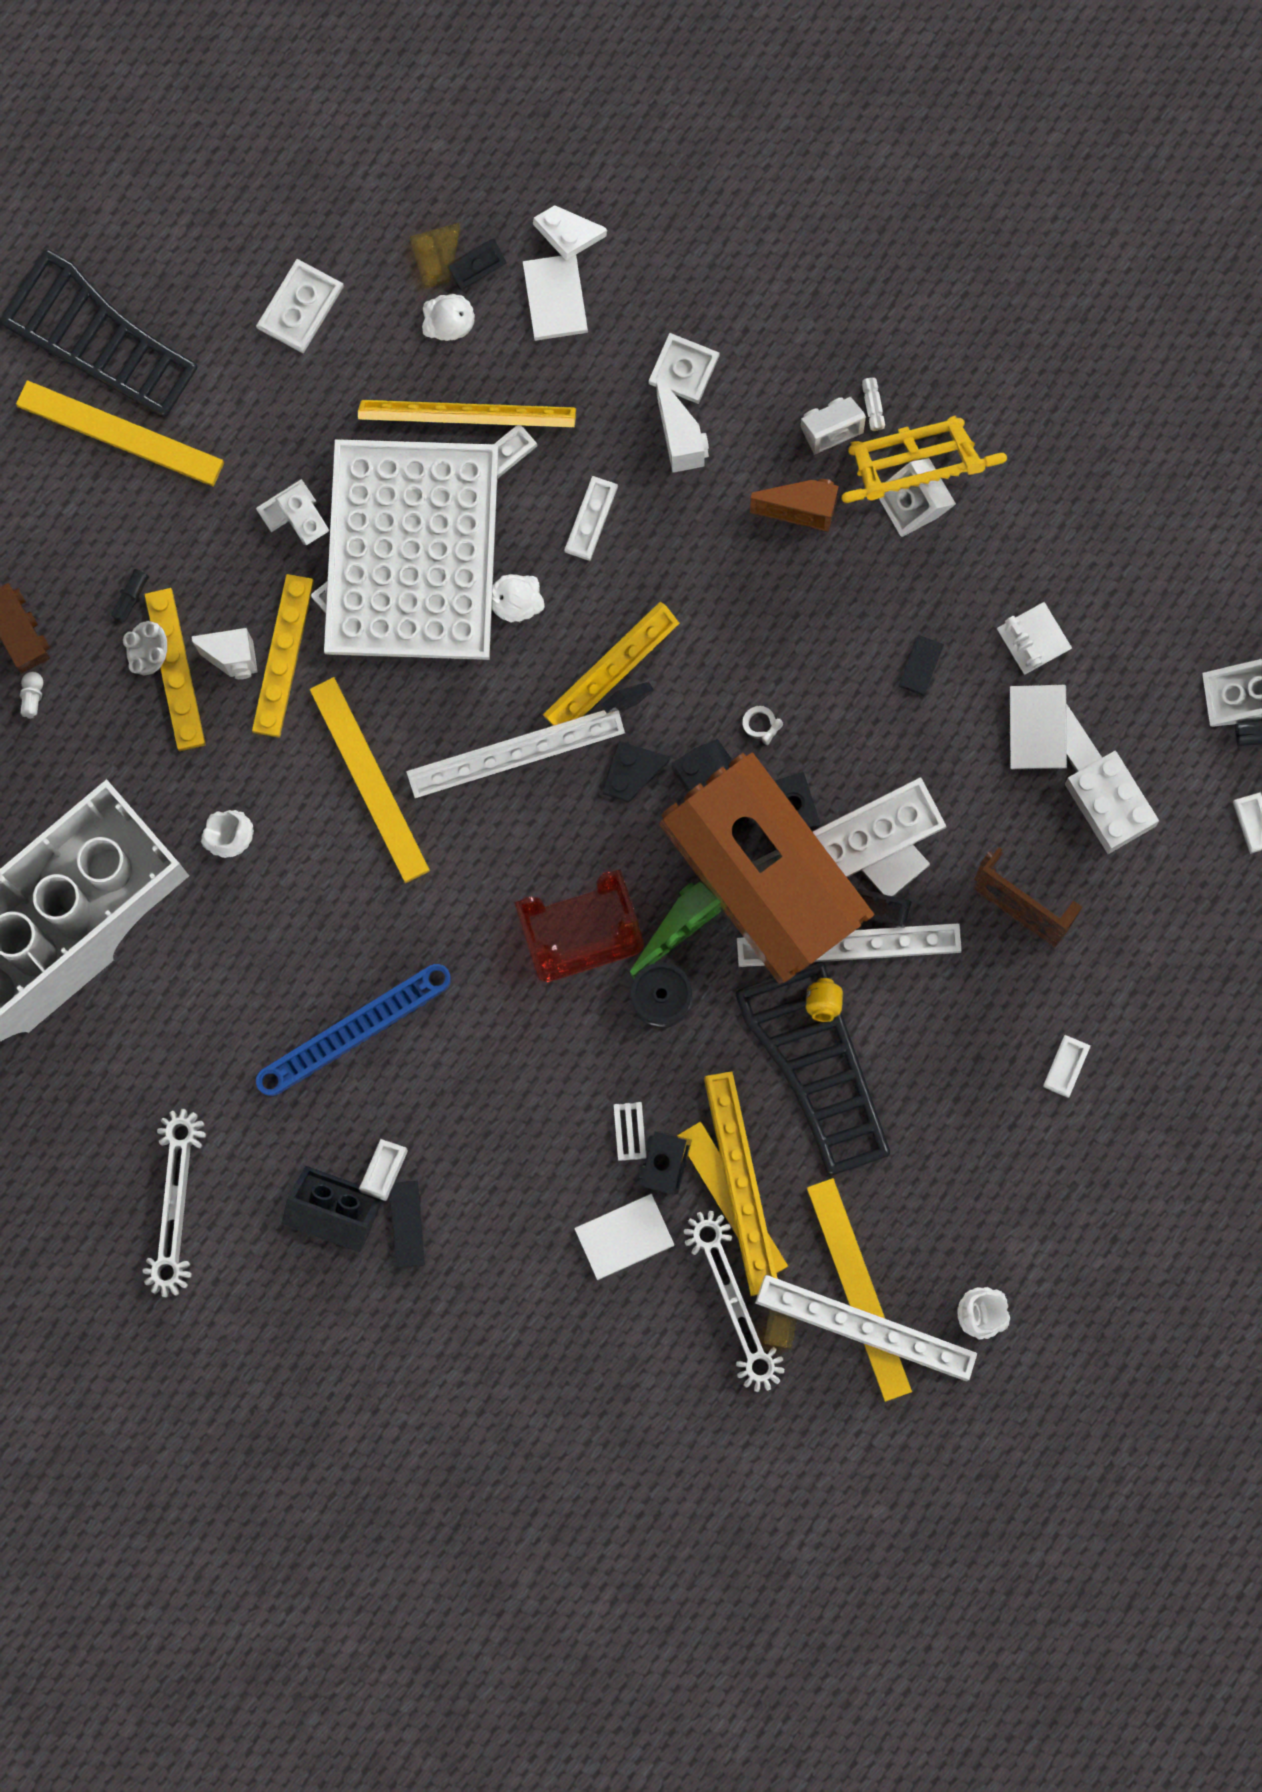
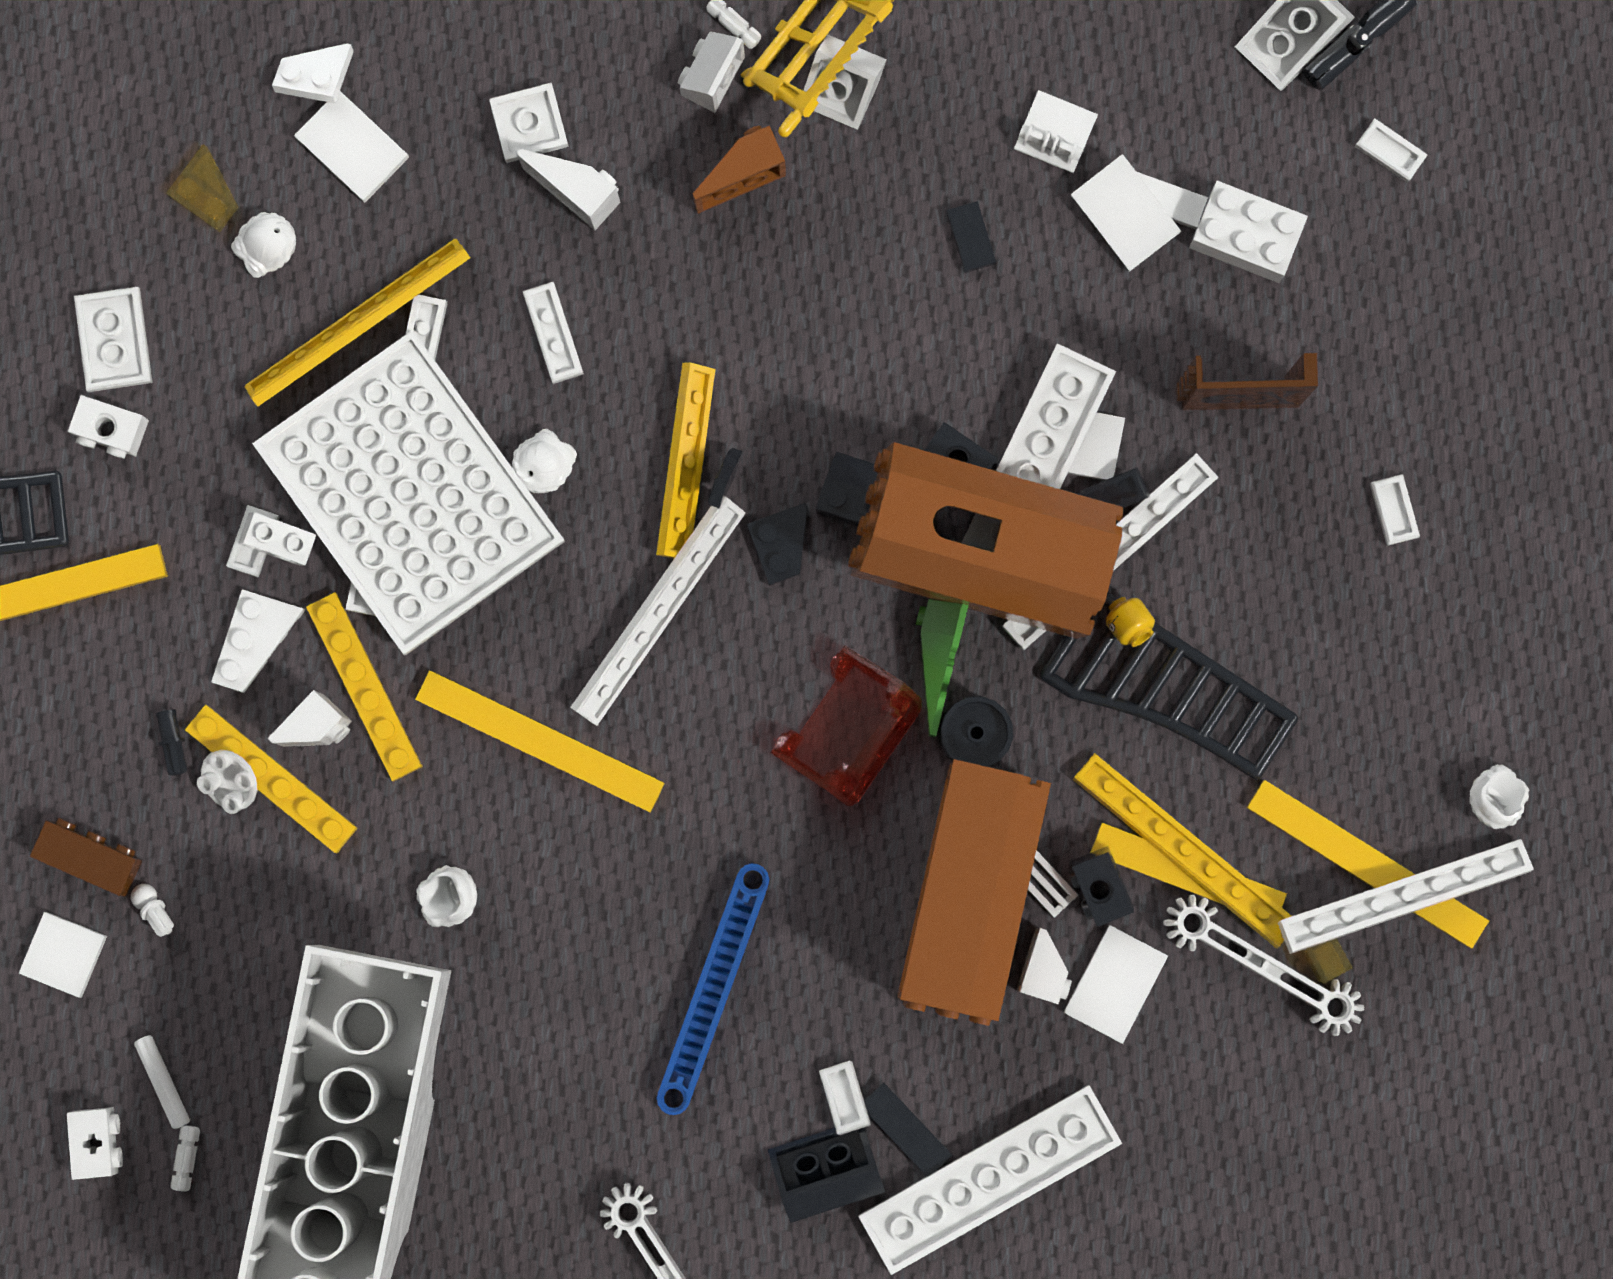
camera: 40 degrees left, 5 degrees up
(235, 568) = (252, 637): none -> white wing
(245, 345) = (93, 414): none -> white brick
(436, 1300) = (989, 1179): none -> white plate
(476, 264) = (252, 171): black plate -> none
(572, 1092) = (973, 892): none -> dark orange panel
(581, 1186) = (1044, 970): none -> white slope
(765, 736) = (880, 414): white piece -> none

